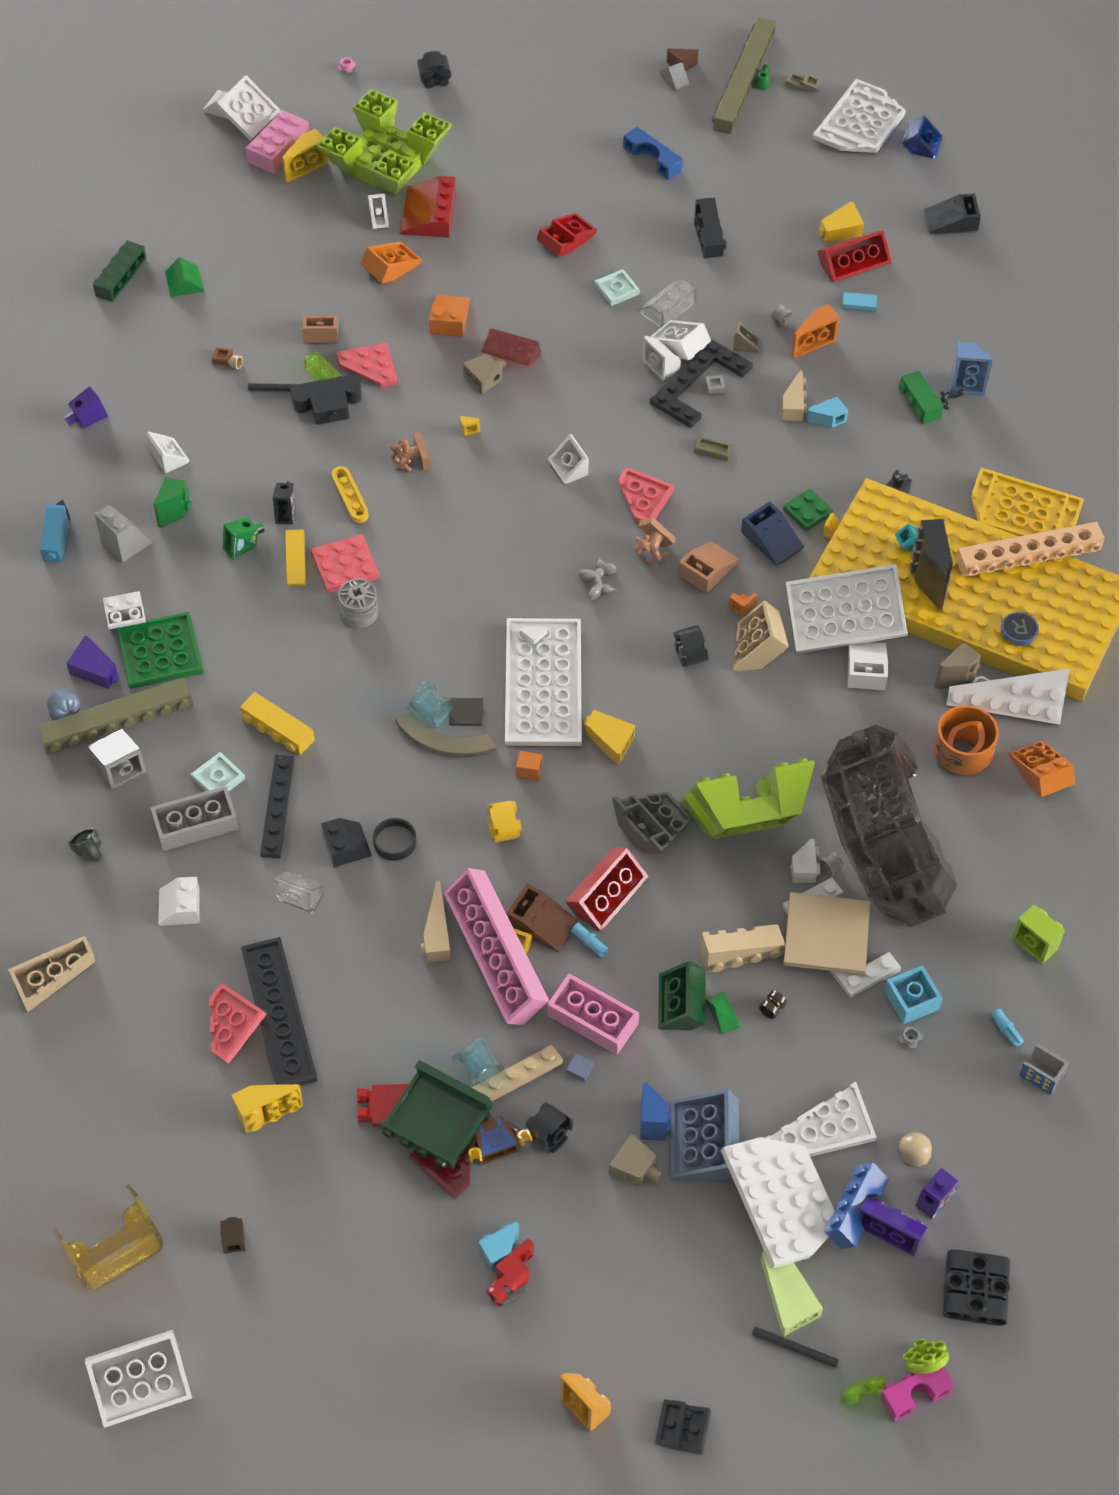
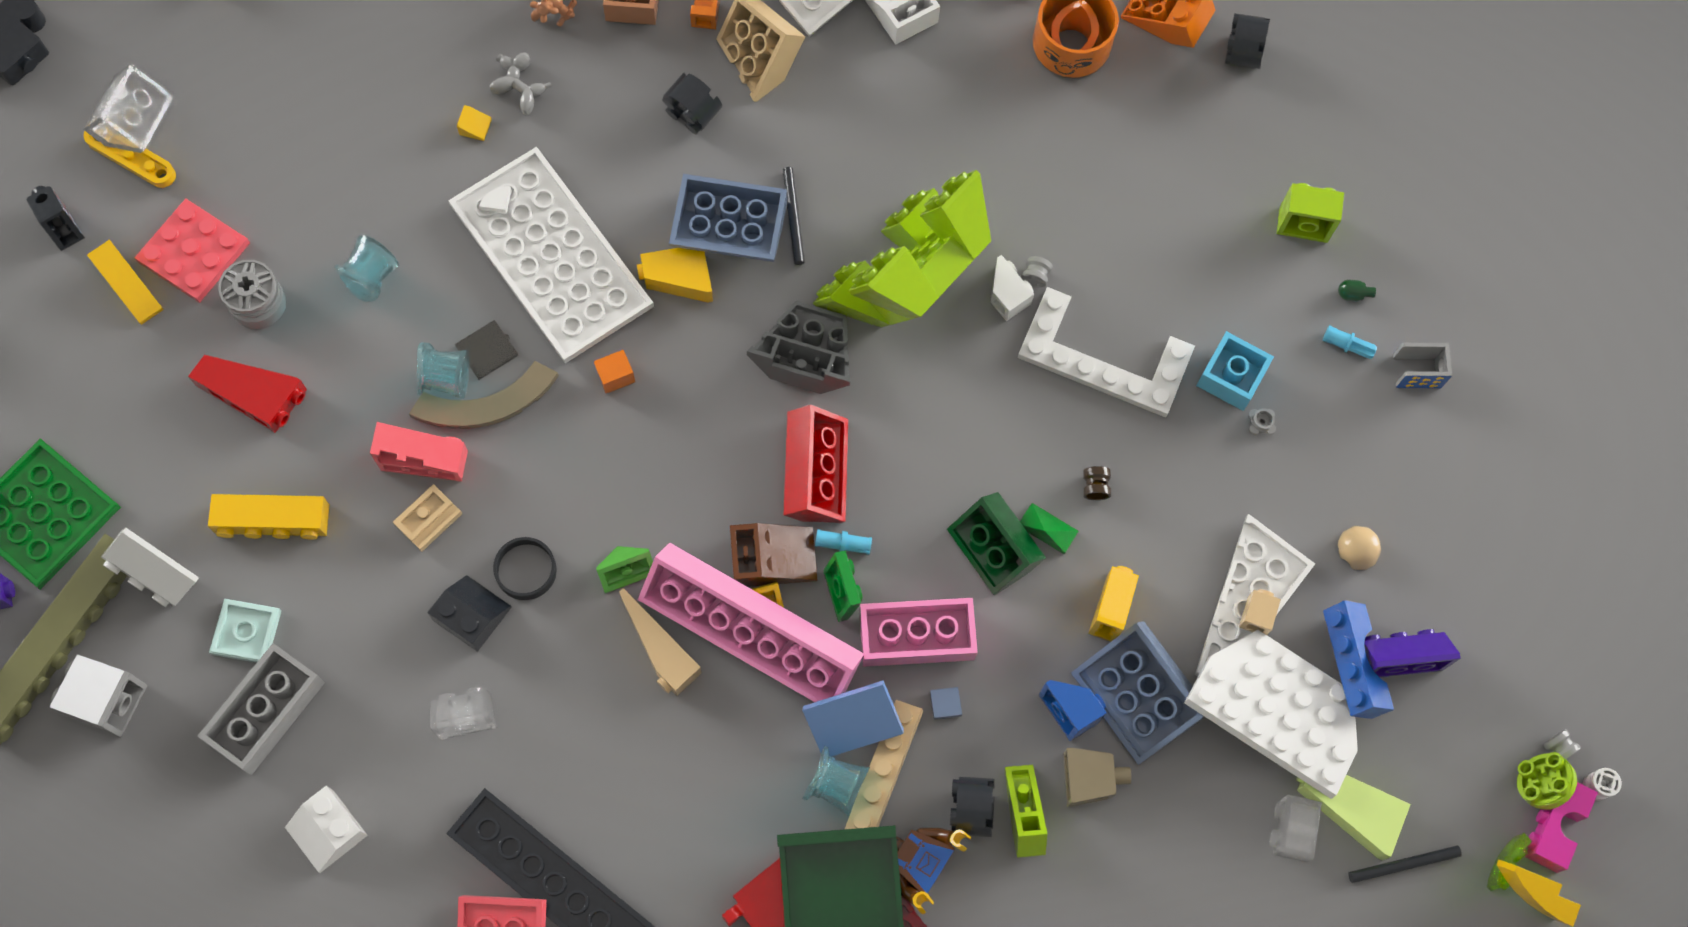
camera: 40 degrees left, 15 degrees up
(87, 844) = (149, 835): pearl dark grey hair -> none
(192, 707) = (148, 568): none -> white slope
(240, 536) = (32, 297): green torso -> none
(277, 806) = (350, 621): black plate -> none
(318, 653) = (250, 390): none -> red slope
(361, 778) = (427, 518): none -> tan plate
(366, 470) = (128, 111): none -> clear slope
(382, 739) = (418, 453): none -> coral wedge
(411, 453) = (163, 57): nougat piece -> none
(431, 626) = (367, 268): none -> clear light blue hat
(446, 872) = (624, 567): none -> bright green slope
(503, 821) = (641, 463): yellow brick -> none
(515, 1033) = (853, 719): none -> medium blue tile
(554, 586) = (473, 123): none -> yellow slope
(568, 960) = (842, 587): none -> green plate
(578, 1155) = (1026, 811): none -> lime slope
(662, 720) = (728, 217): none -> sand blue slope
(705, 746) = (793, 216): none -> black bar
(727, 1074) = (1114, 603): none -> yellow slope
(739, 1276) = (1296, 828): none -> clear brick
(740, 947) = (1016, 438): tan wedge -> none
(814, 1136) = (1260, 611): none -> tan brick
(827, 933) = (1095, 359): tan tile -> none
(865, 1414) = (1540, 893): none -> yellow slope
(895, 850) = (1132, 223): clear smoke piece -> none
(940, 1189) = (1422, 579): dark purple torso -> none
(956, 1347) = (1562, 744): none -> light grey wheel
(963, 1392) = (1595, 782): none -> white wheel
(993, 1275) = (1534, 694): black connector -> none
(1036, 1000) = (1355, 290): none -> dark green cylinder
(1079, 812) = (1247, 41): none -> black brick

